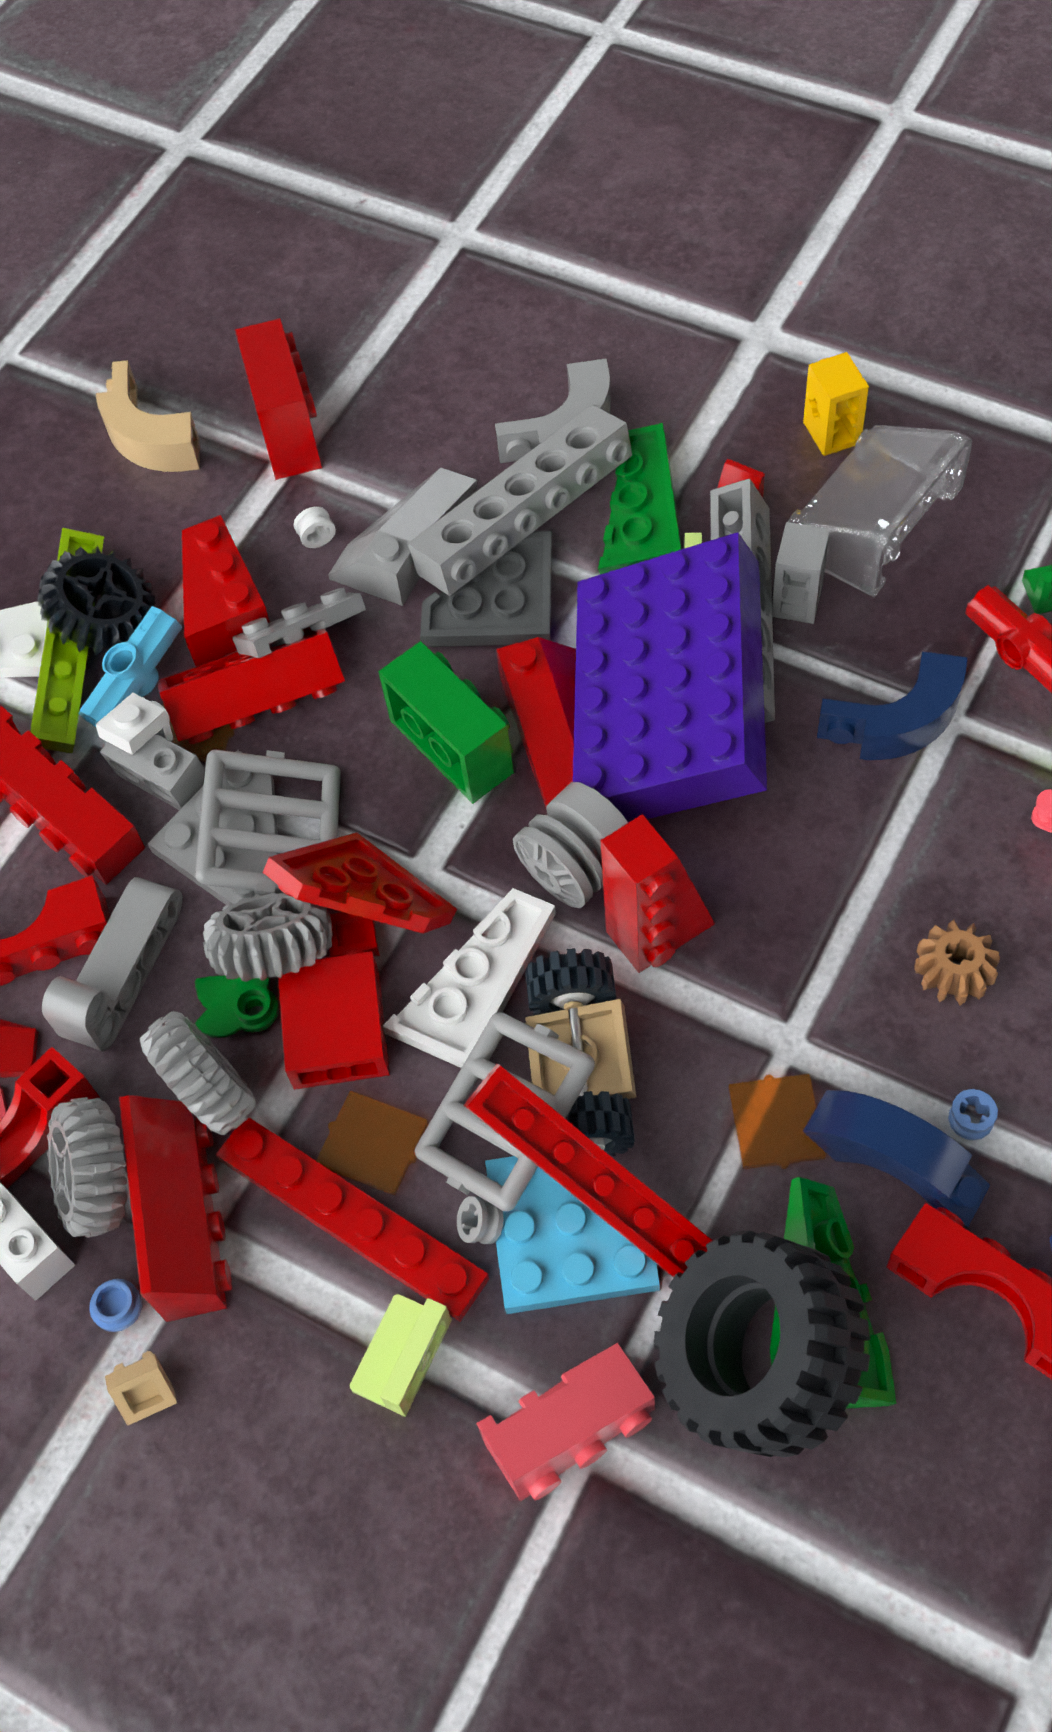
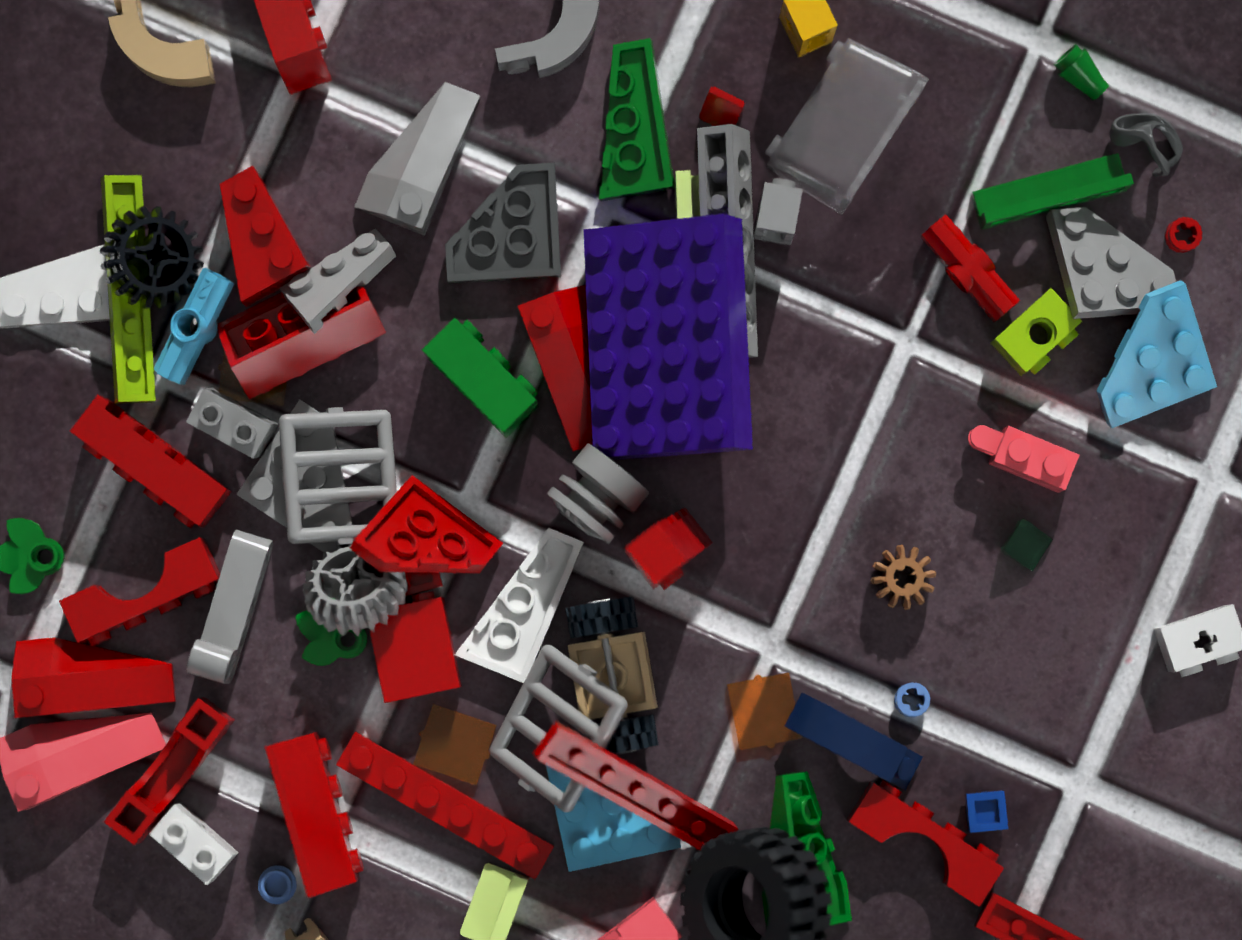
camera: 10 degrees left, 25 degrees up
(87, 1167) = (243, 793): light grey gear -> none
(134, 723) = (214, 399): white bracket -> none
(197, 1073) = (317, 712): light grey gear -> none
(314, 527) = (336, 159): white bush -> none
(479, 1221) = (542, 810): light grey bush -> none
(520, 499) = (583, 61): light grey brick -> none
(903, 725) = (890, 334): dark blue arch -> none

